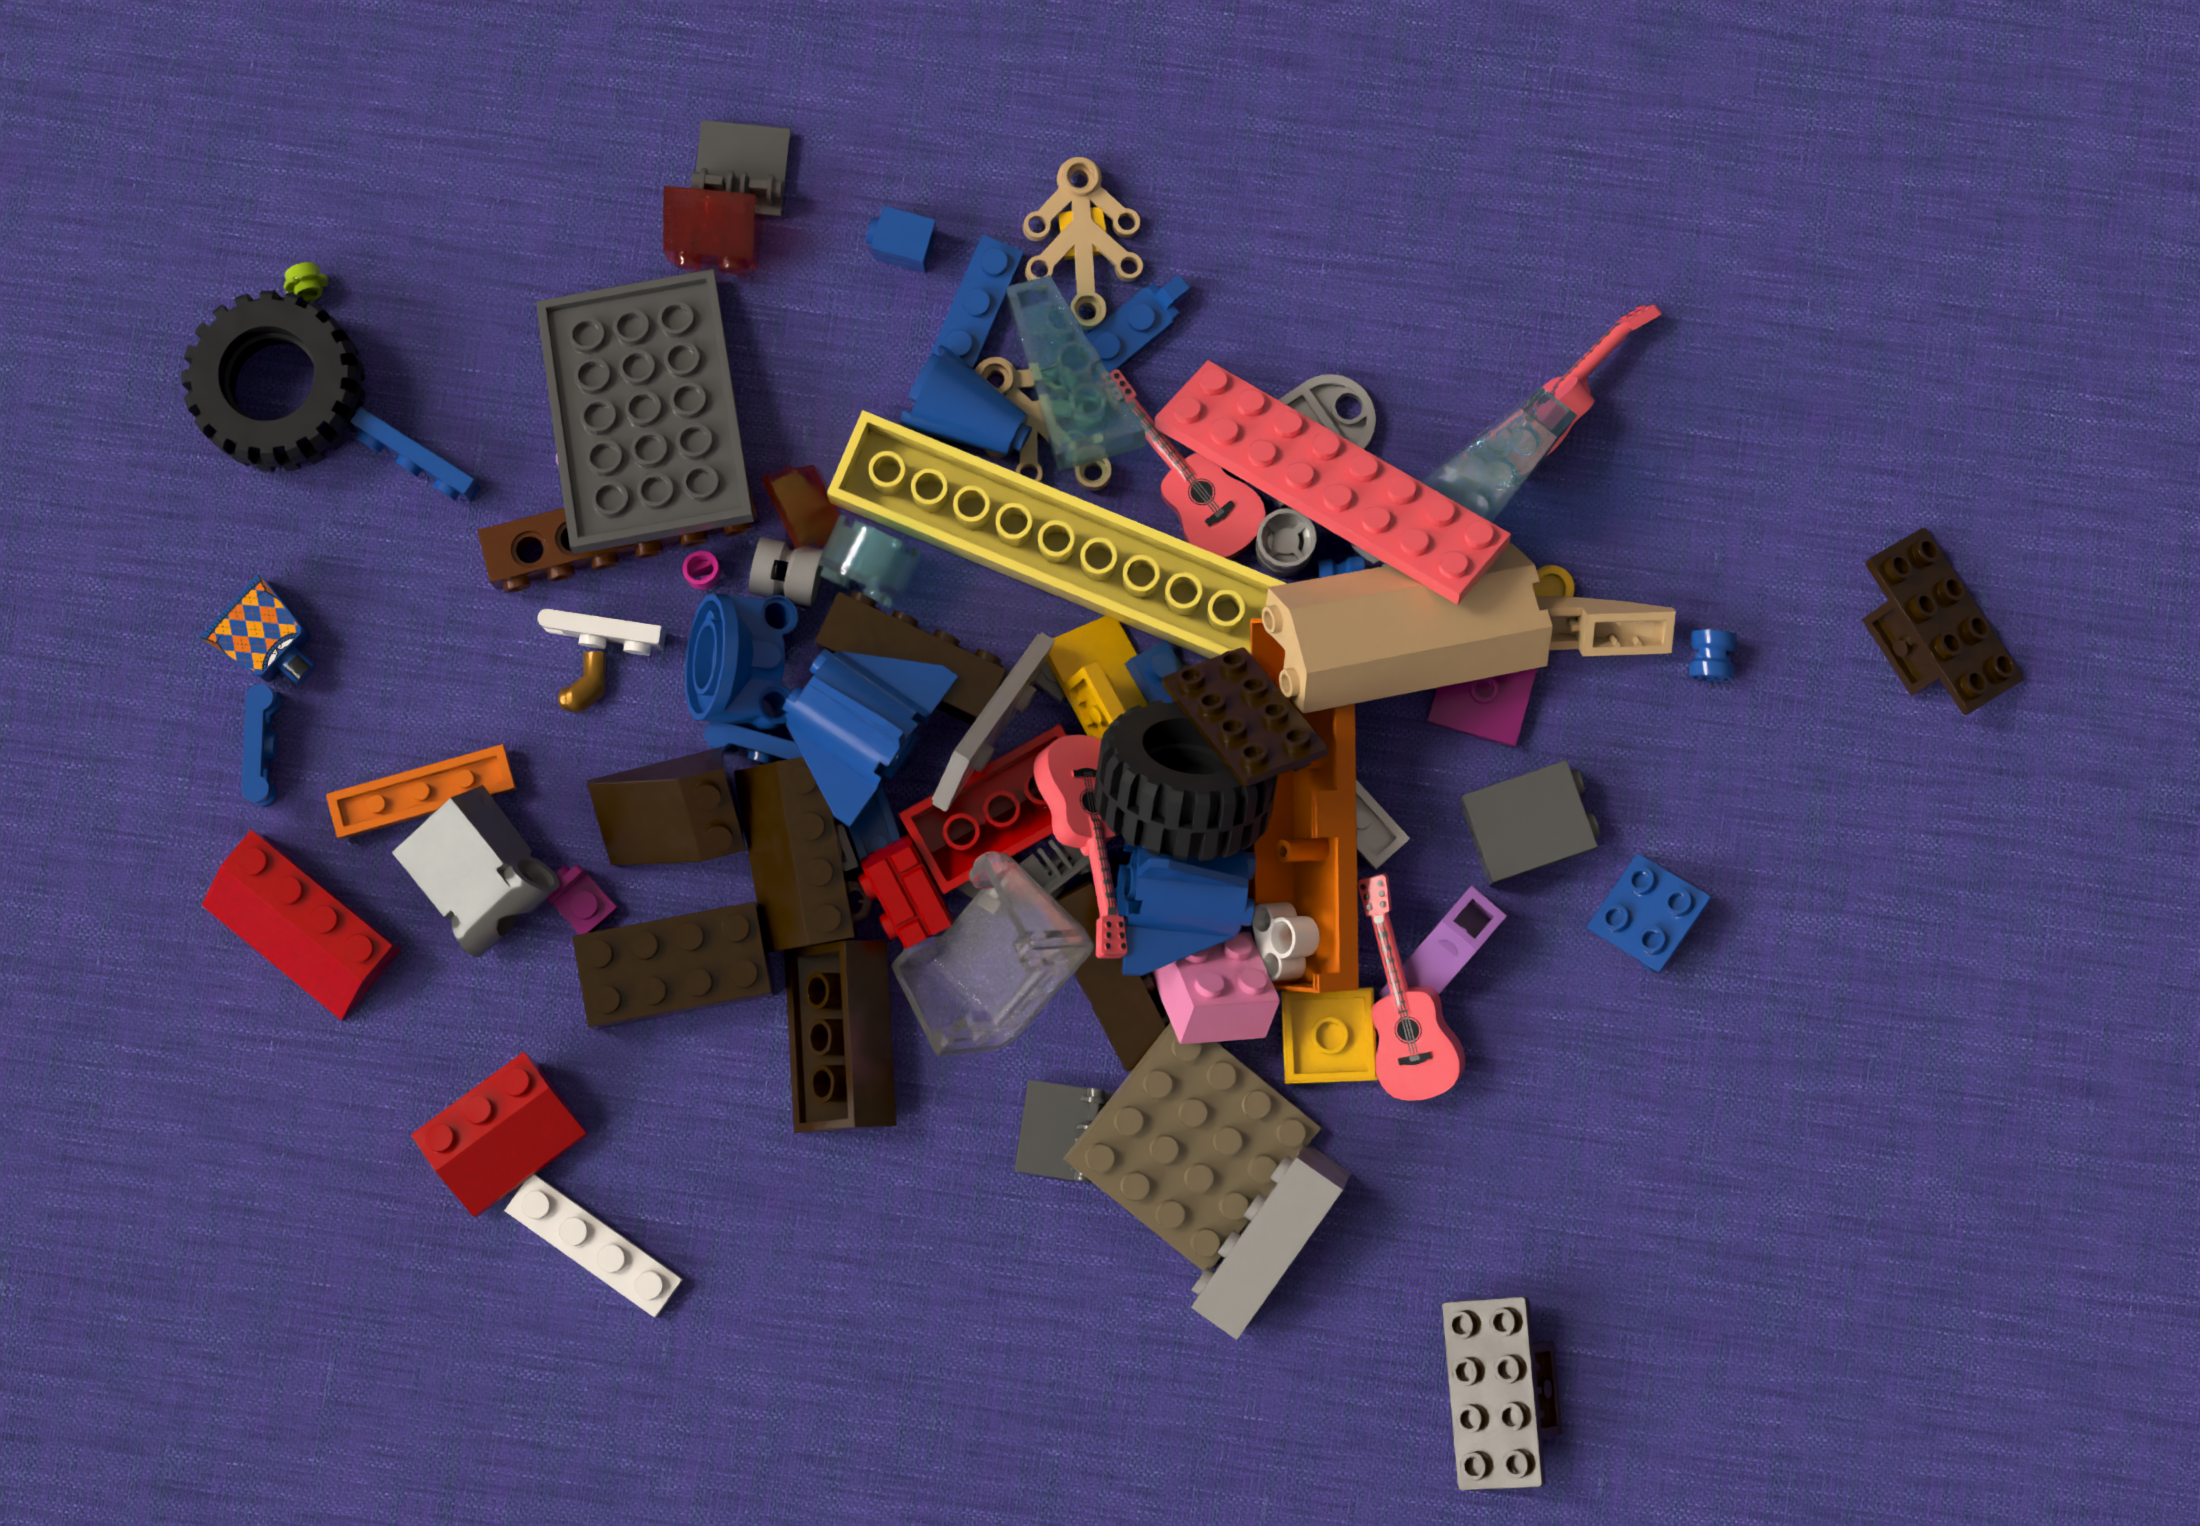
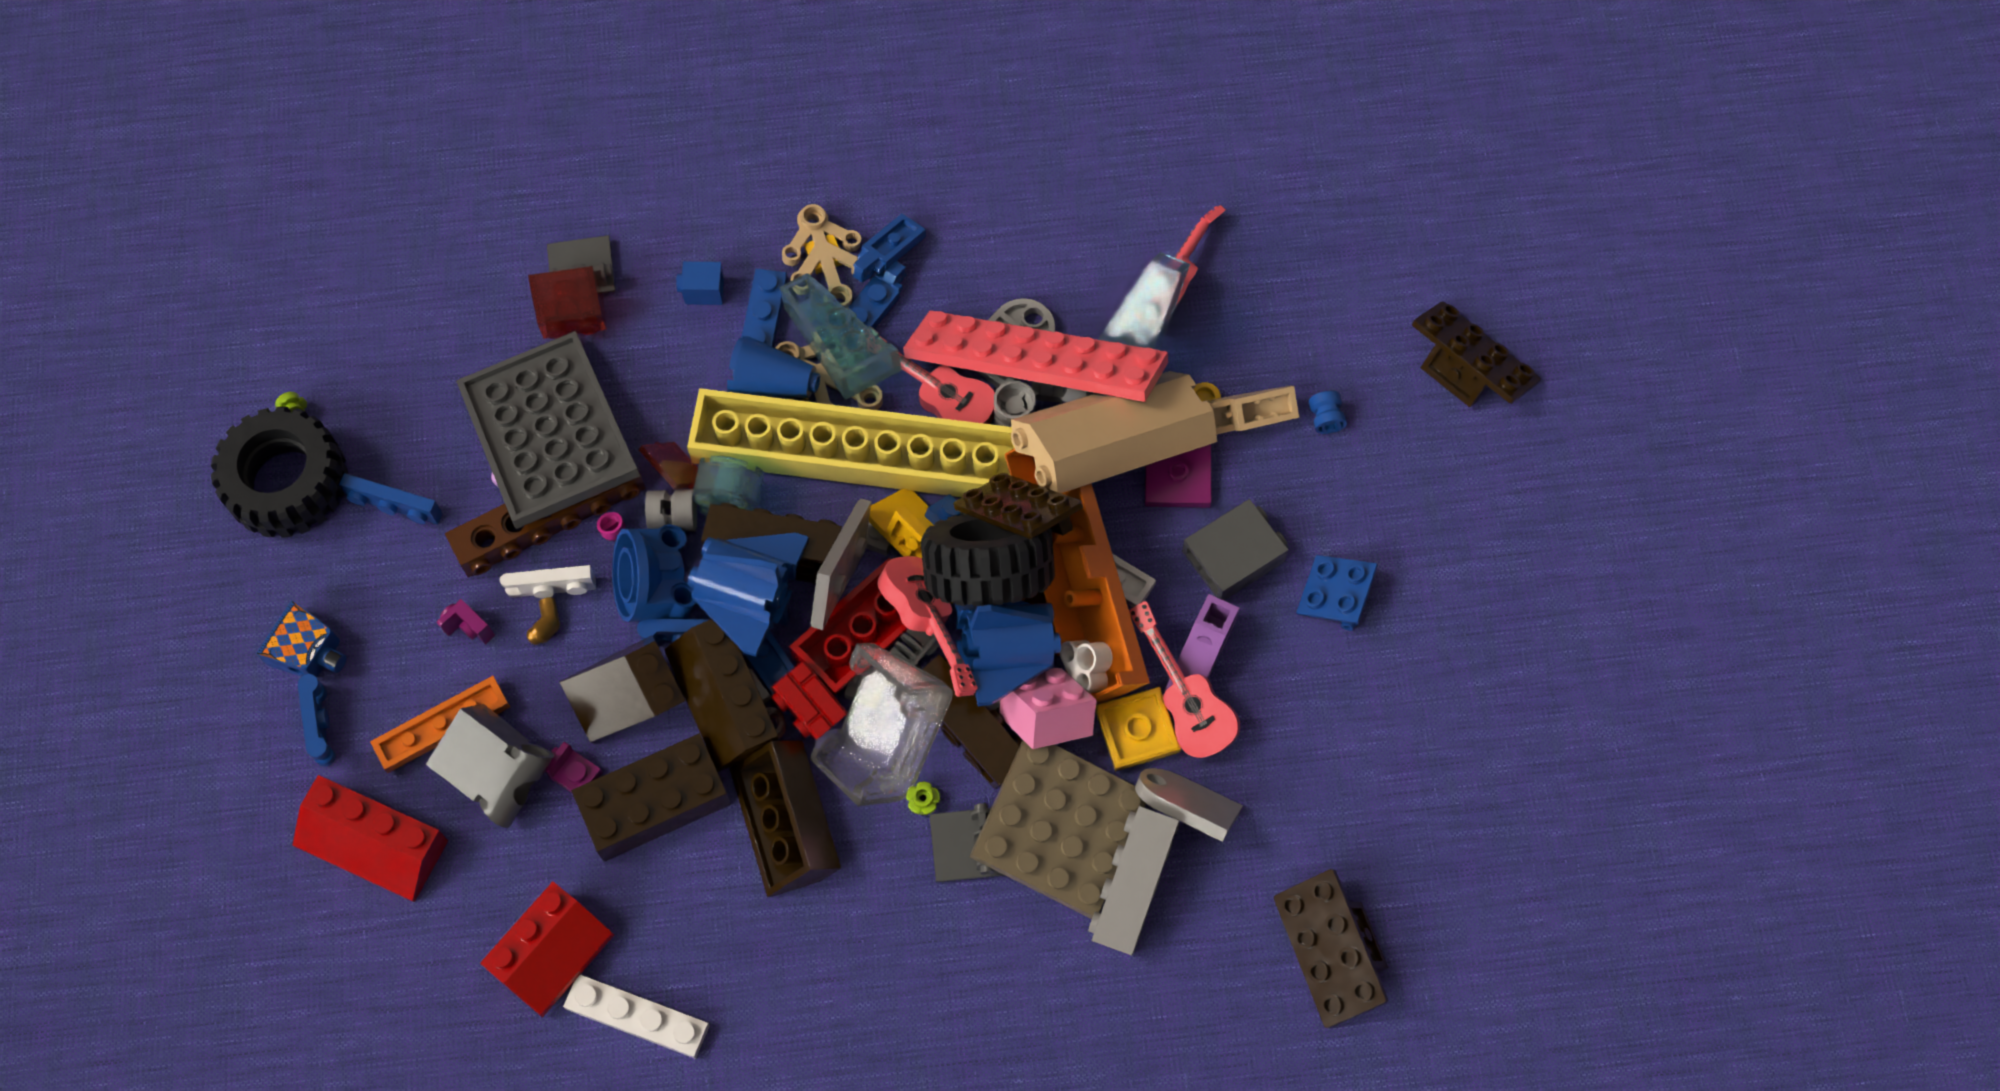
camera: 15 degrees left, 15 degrees down
(489, 662) = (470, 623): none -> magenta bracket
(1026, 1043) = (923, 807): none -> lime plate
(1174, 250) = (887, 247): none -> blue hinge
(1365, 1157) = (1188, 802): none -> light grey tile

